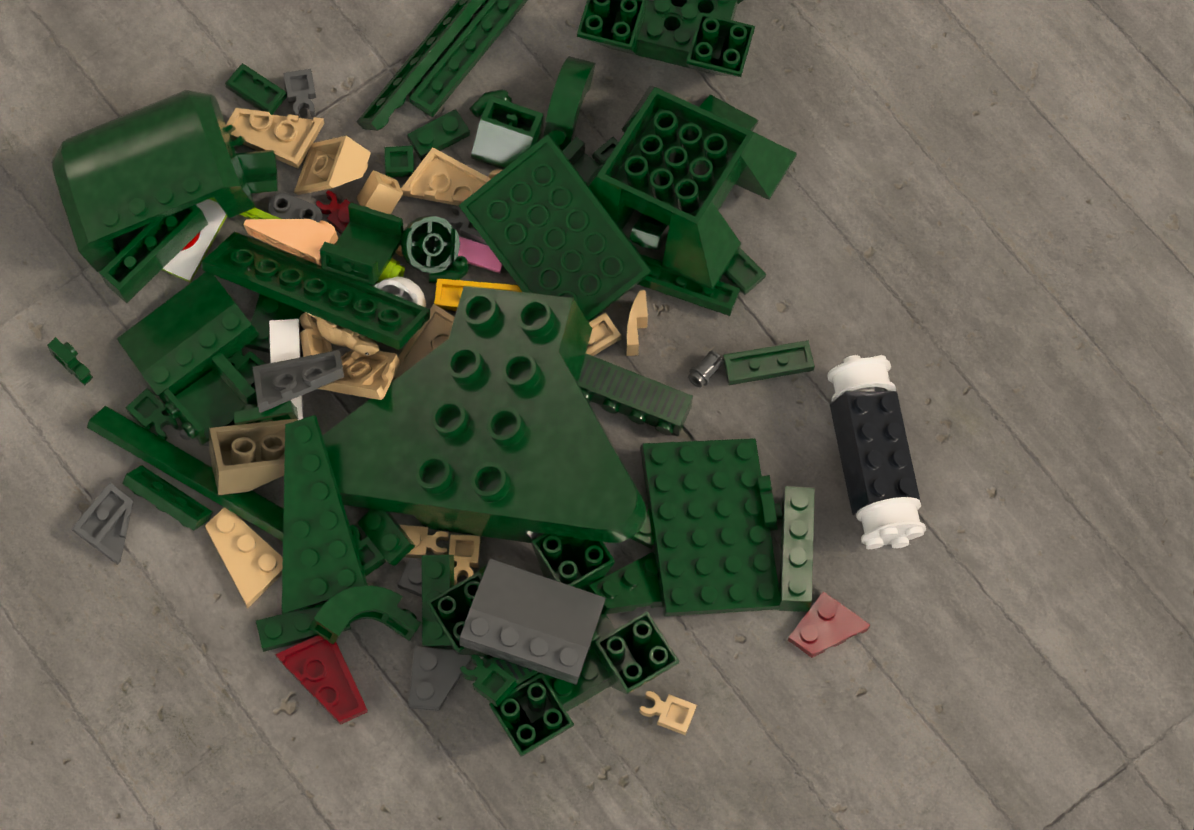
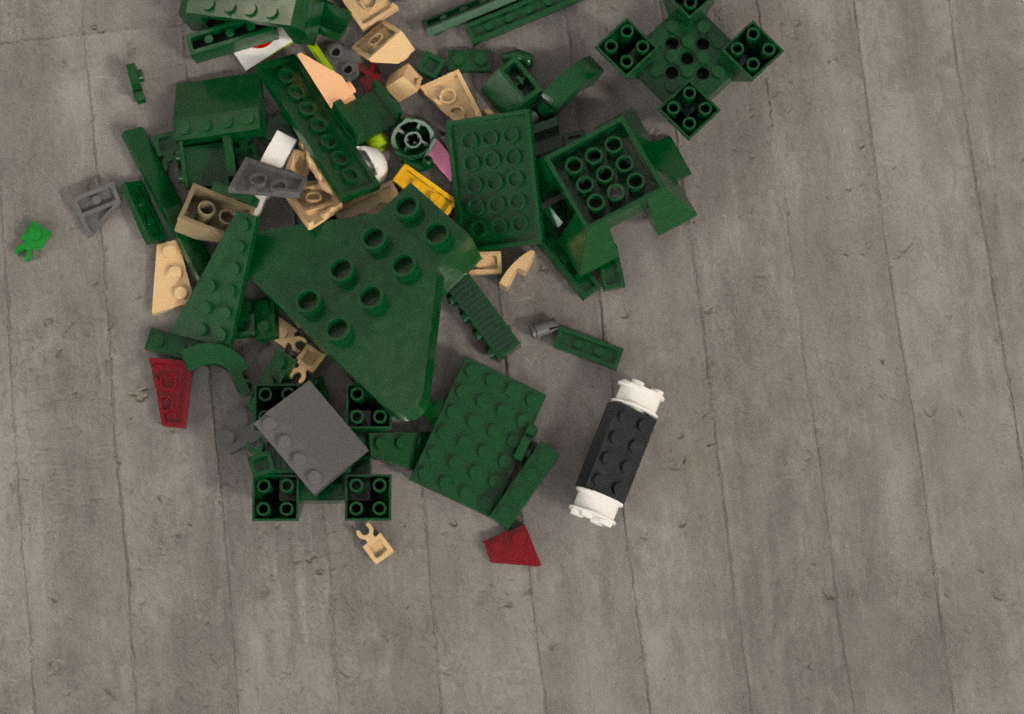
camera: 35 degrees right, 10 degrees up
(52, 600) = (34, 238): none -> green plate

